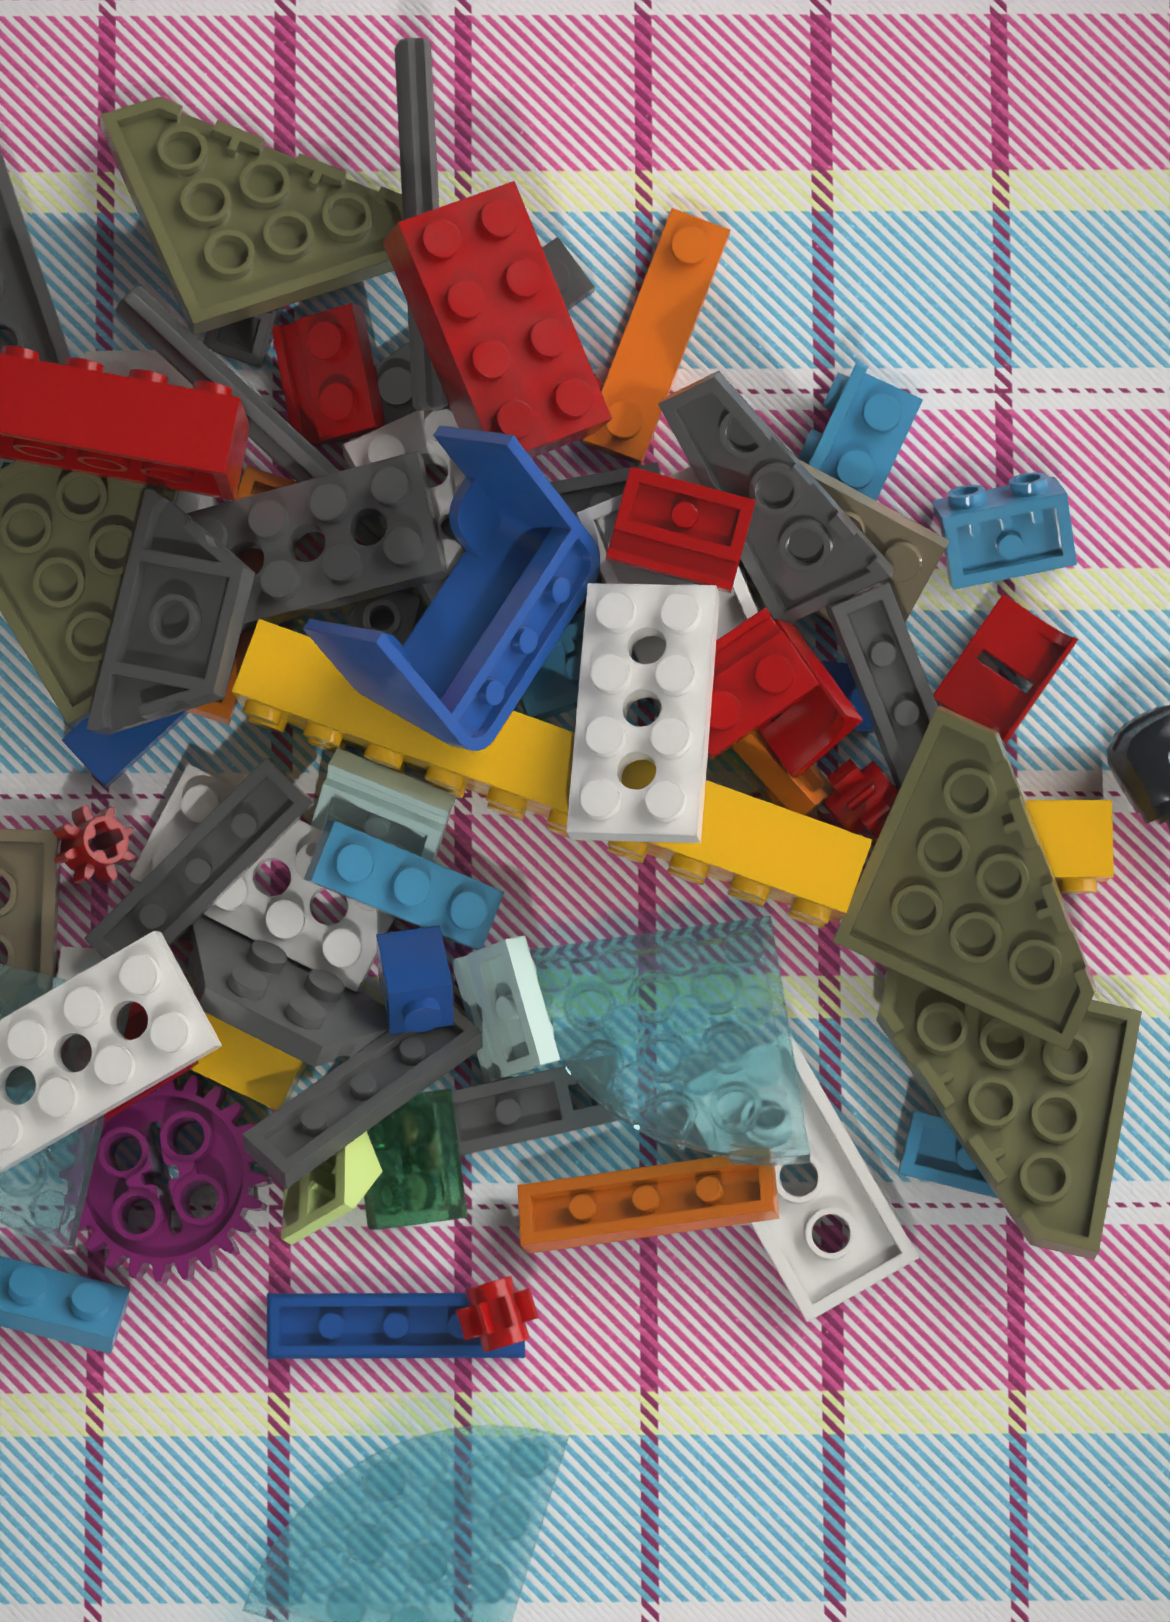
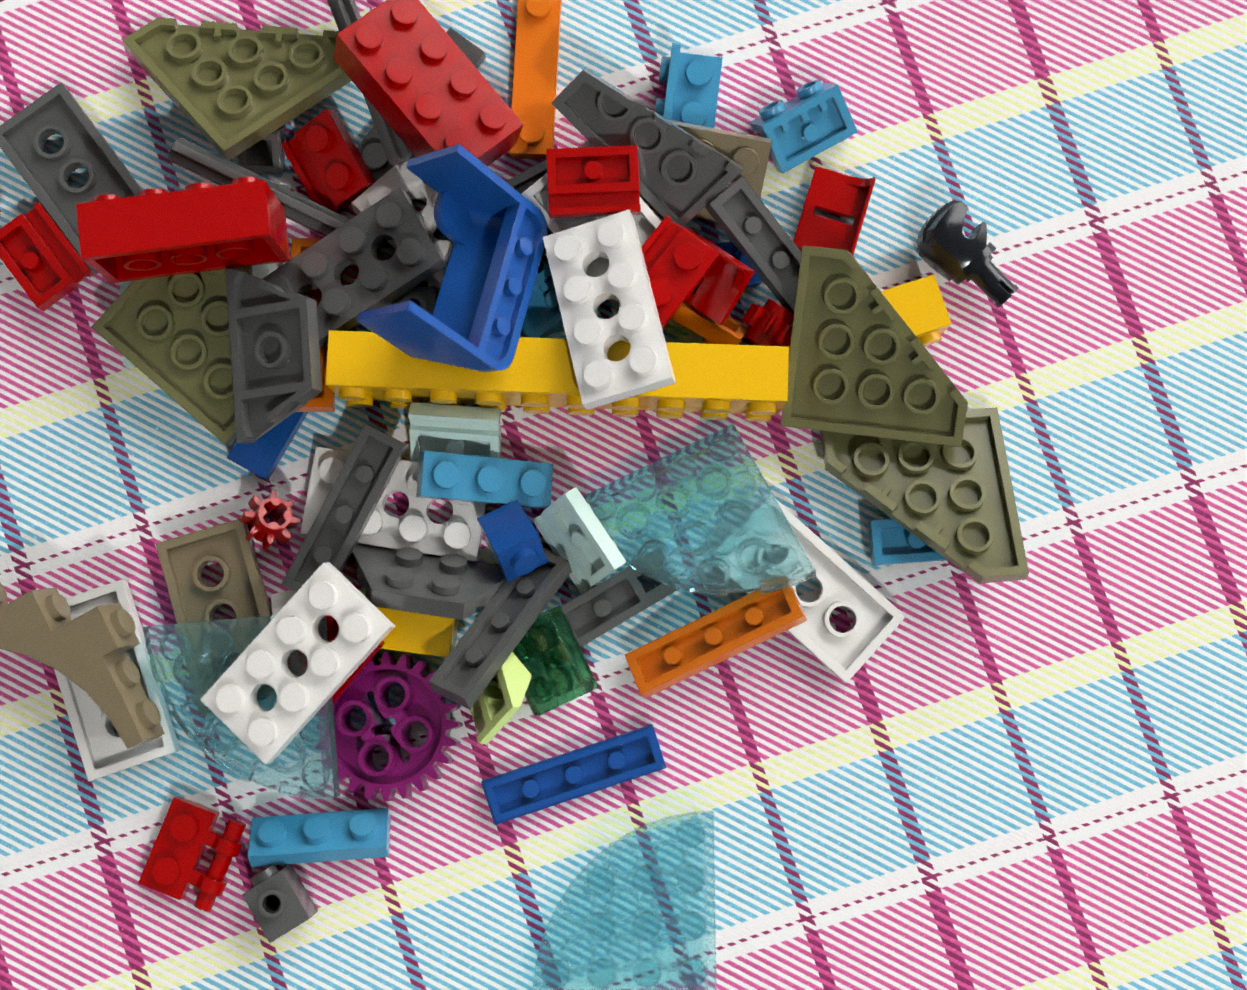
camera: 20 degrees left, 0 degrees up
(497, 1314) = (639, 745): red gear -> none

